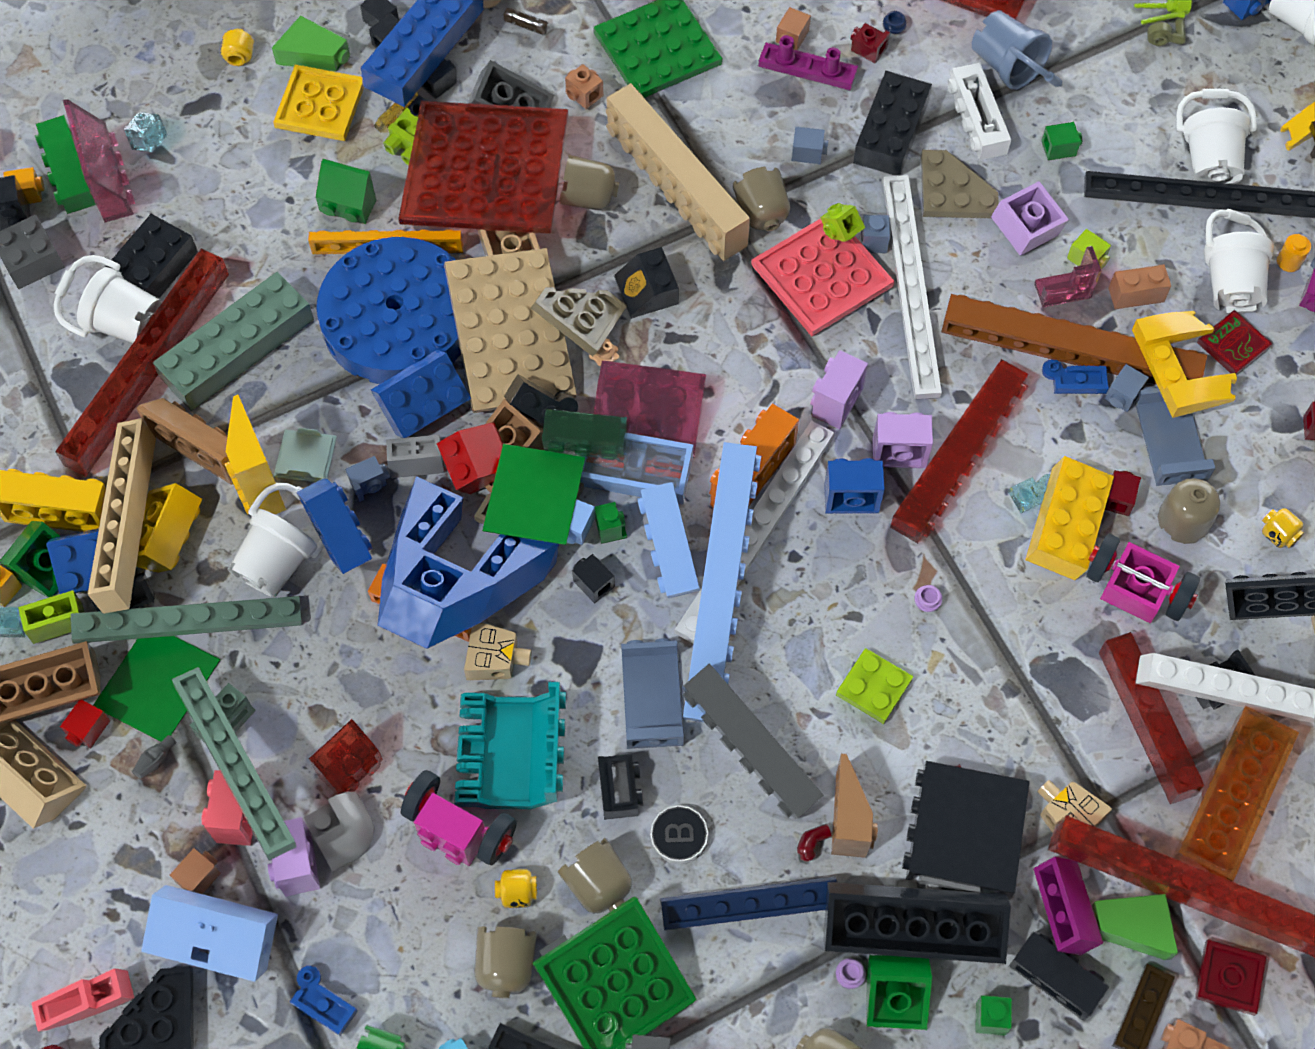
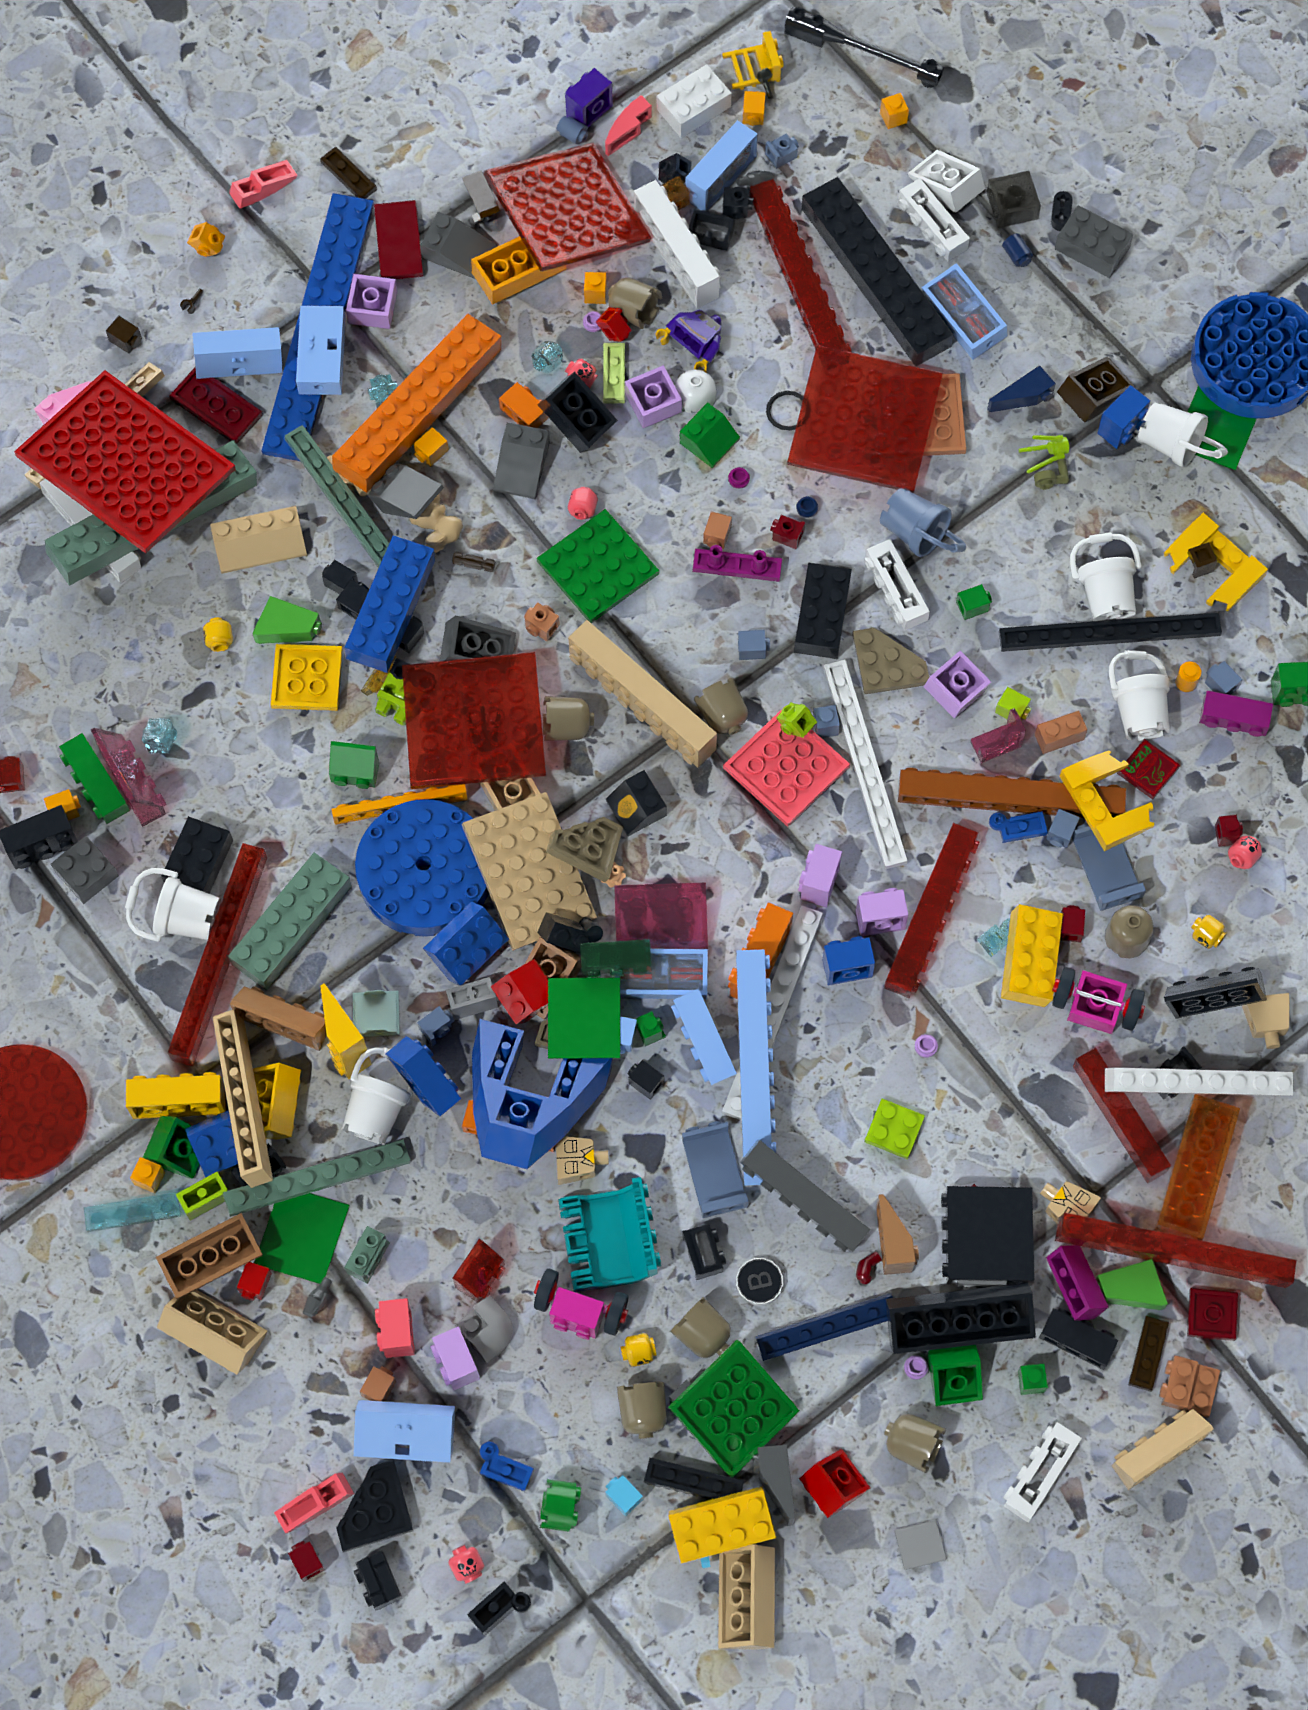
camera: 10 degrees left, 5 degrees up
(234, 764) = (393, 1292): sand green plate -> none

